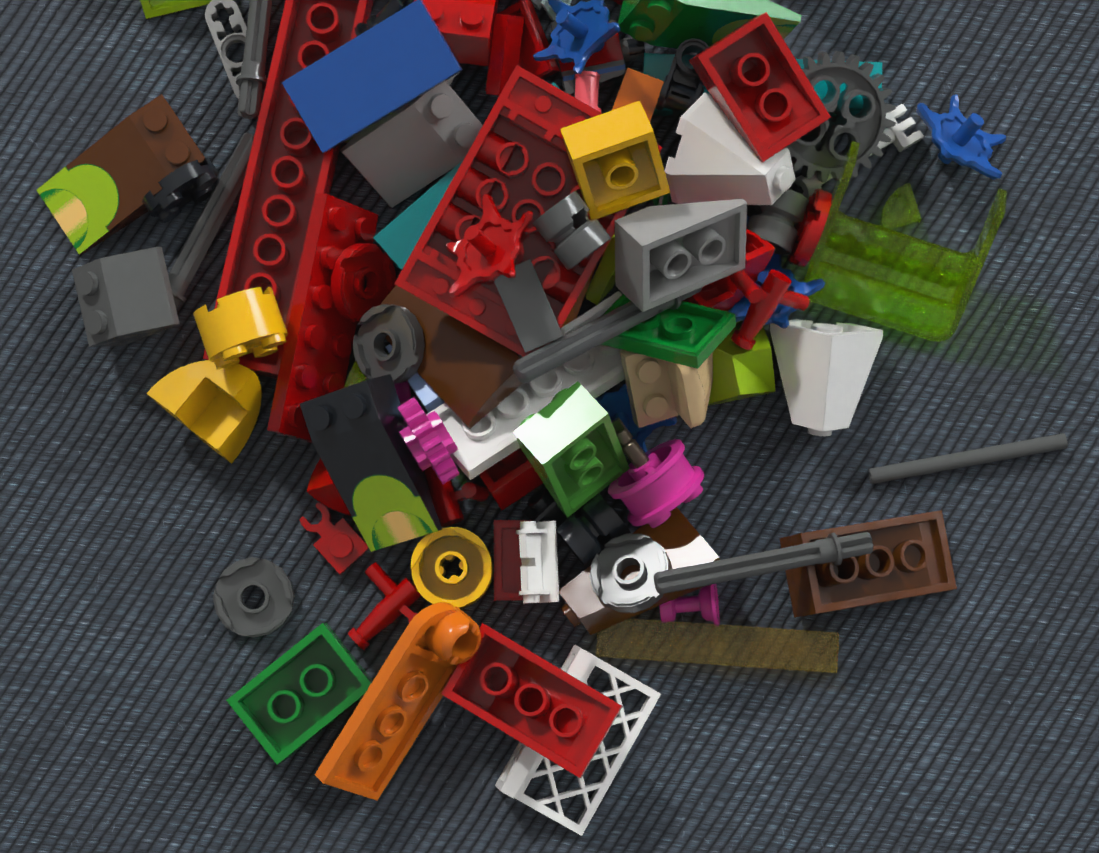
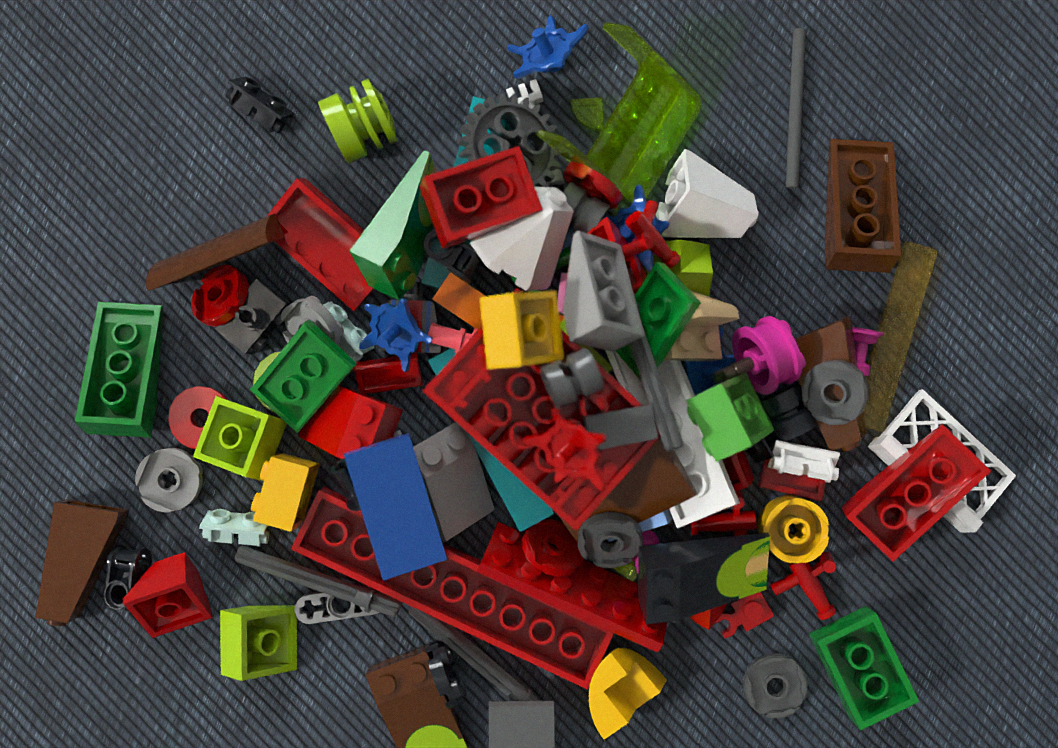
camera: 70 degrees left, 5 degrees up
(241, 326) = (575, 657): yellow brick -> none
(400, 700) = (890, 594): orange plate -> none
(428, 440) = (704, 530): dark pink gear -> none
(503, 51) = (396, 393): red tile -> none
(818, 552) = (856, 287): dark grey axle -> none

